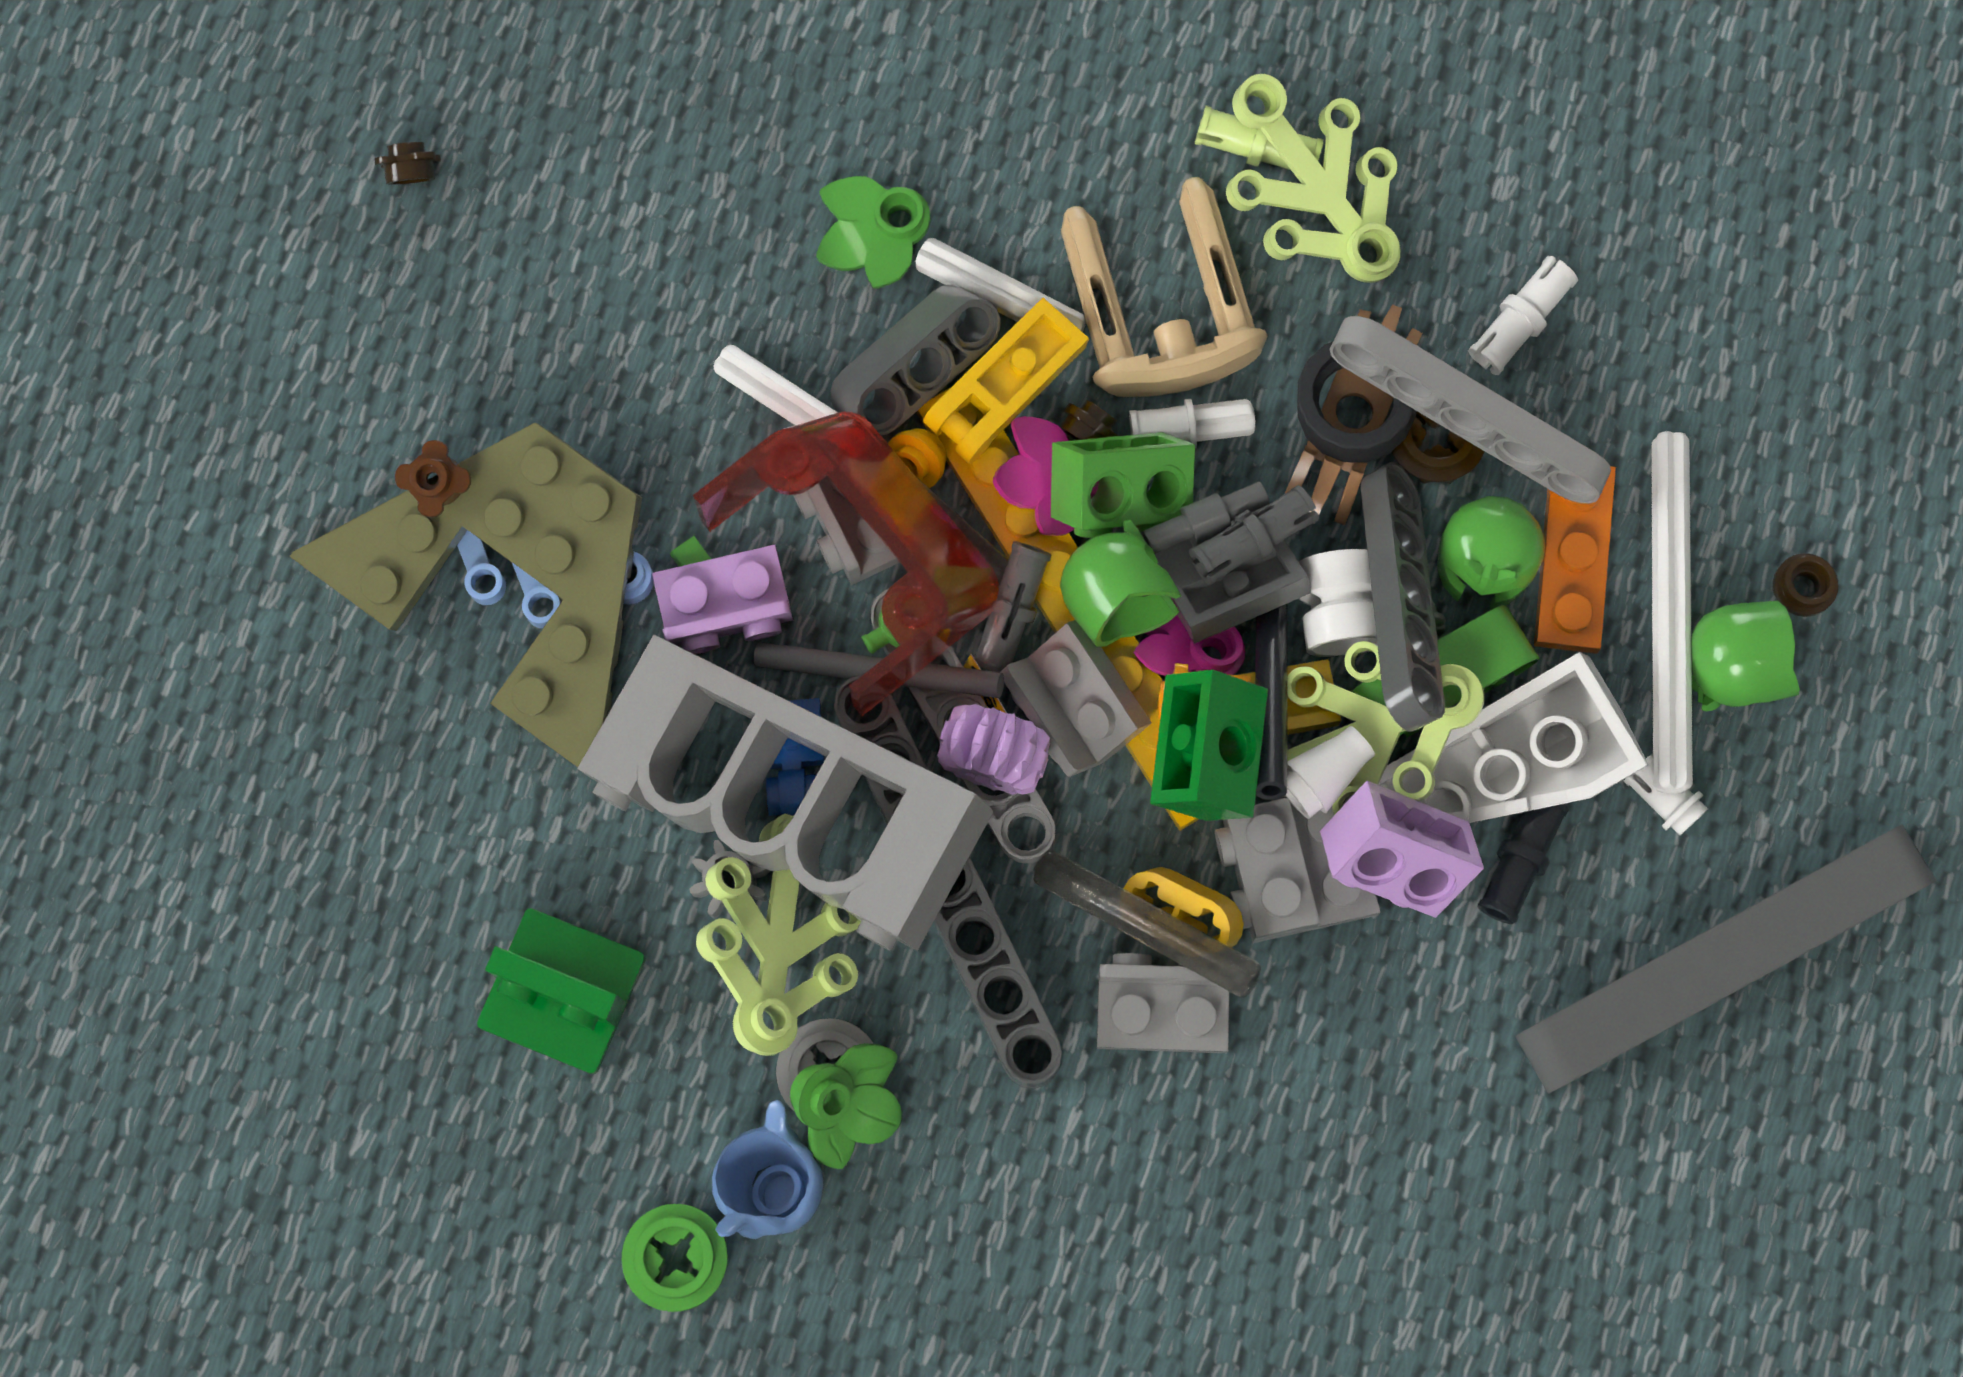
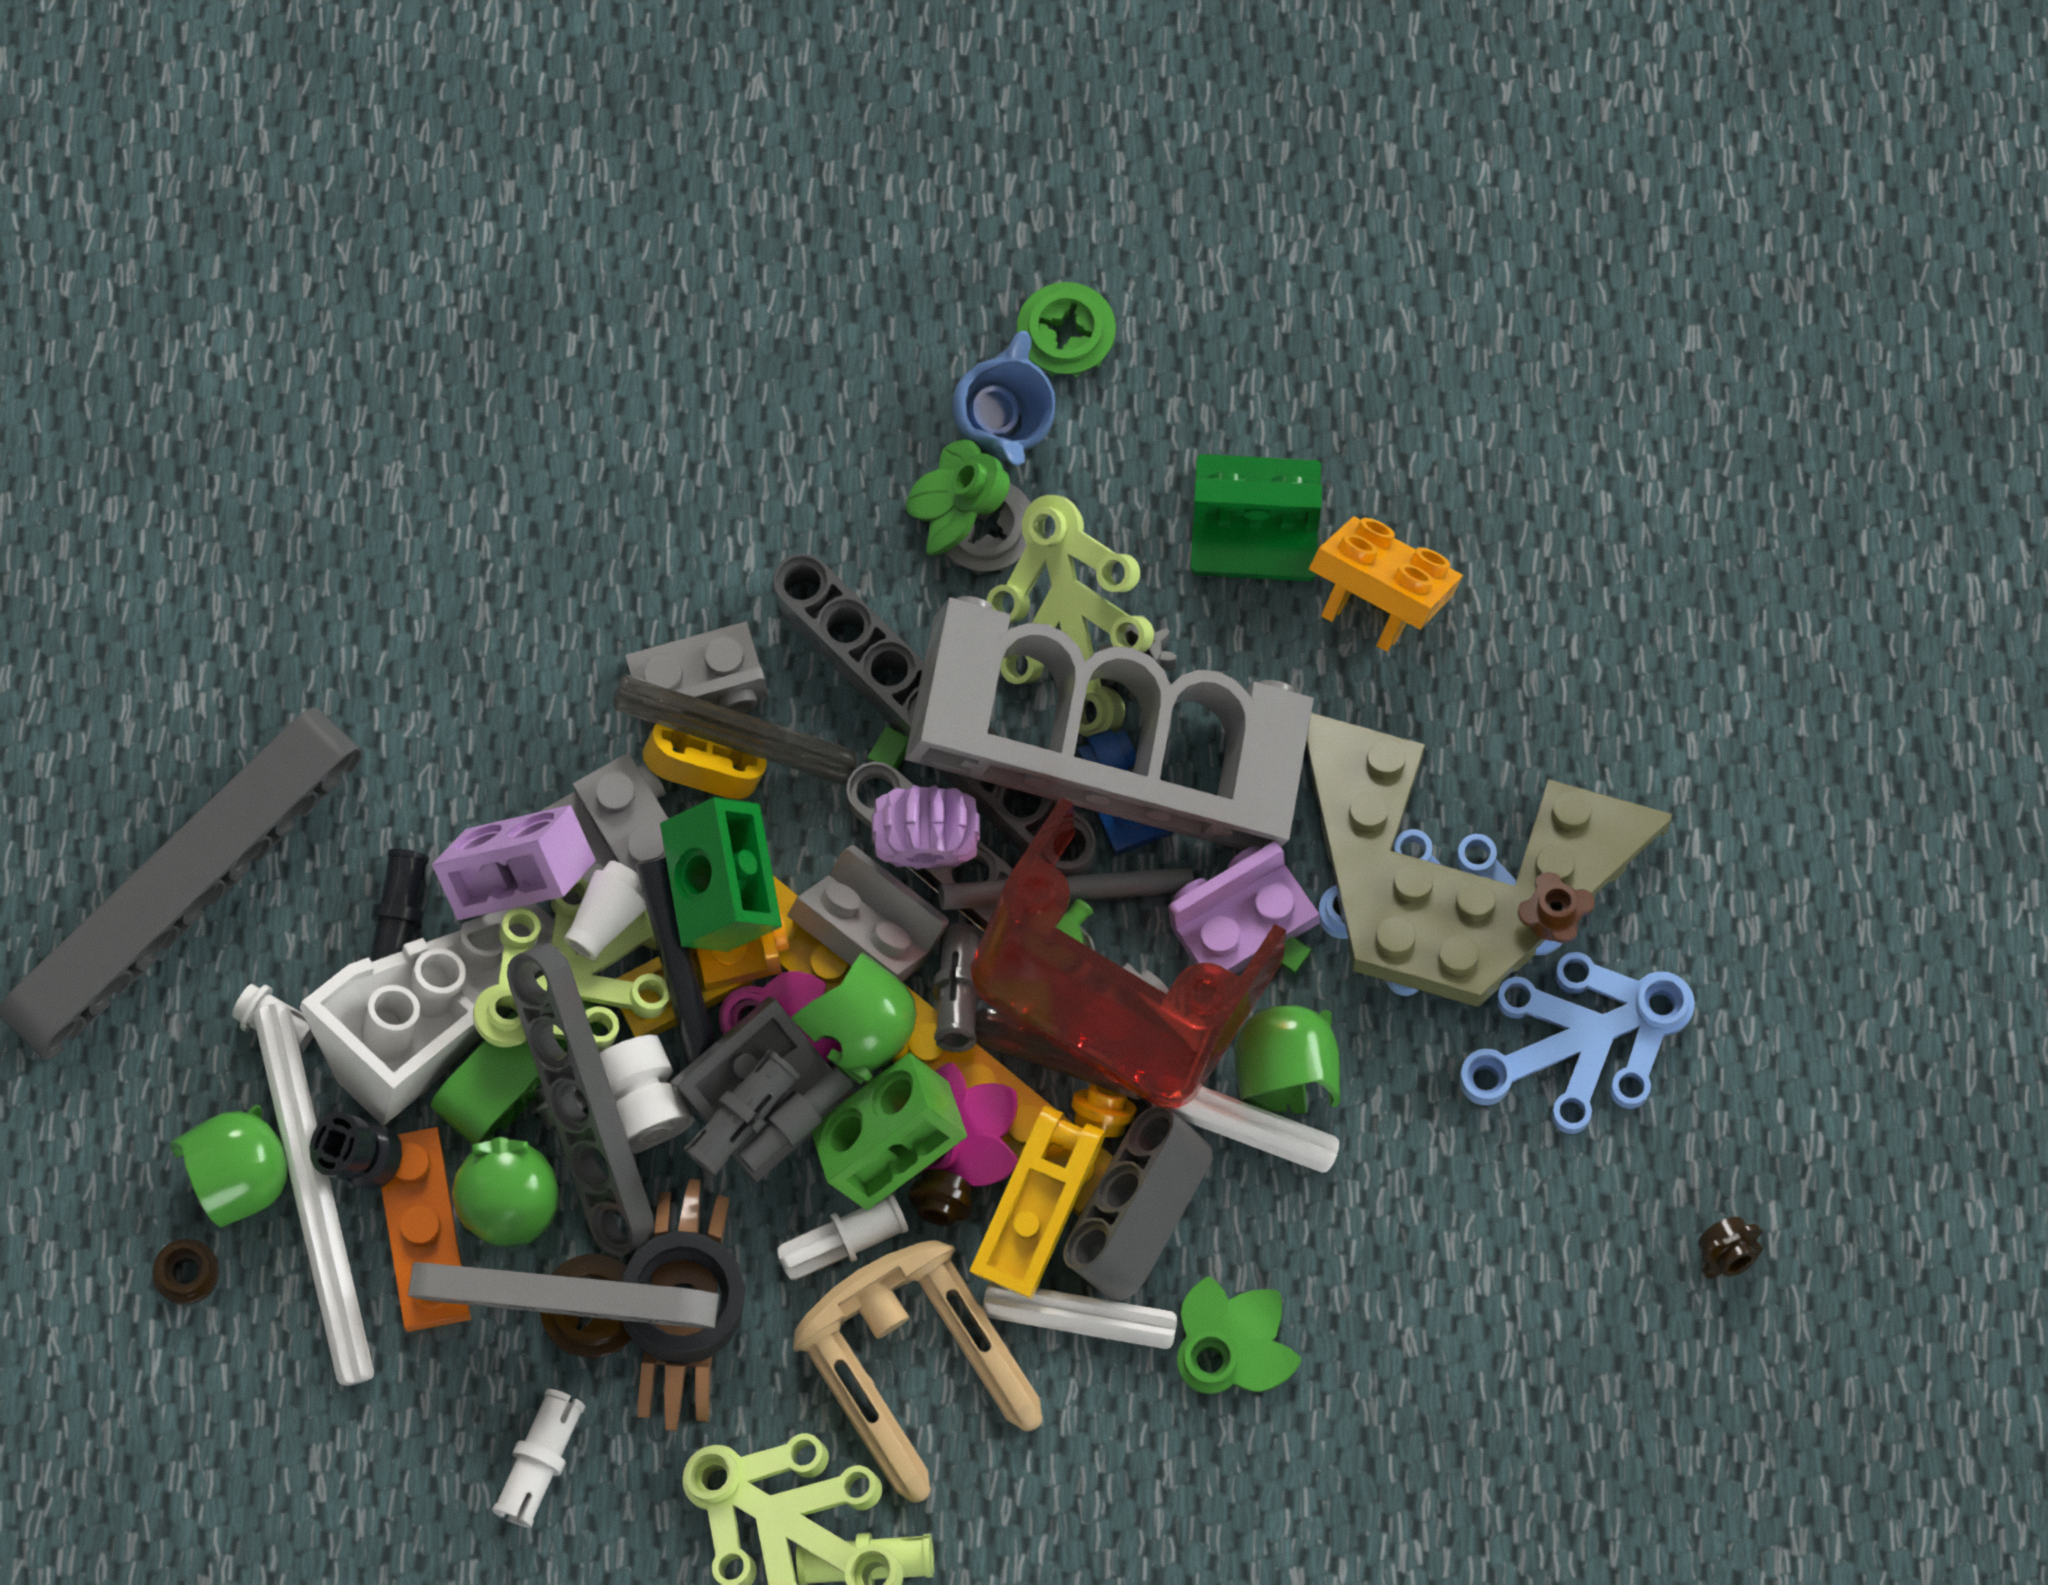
camera: 160 degrees right, 5 degrees down
(454, 387) = (1585, 1034): none -> light blue plant
(459, 872) = (1385, 572): none -> light orange plate
(723, 430) = (1281, 1053): none -> bright green helmet
(999, 873) = (889, 748): none -> bright green piece
(1624, 627) = (355, 1150): none -> black wheel

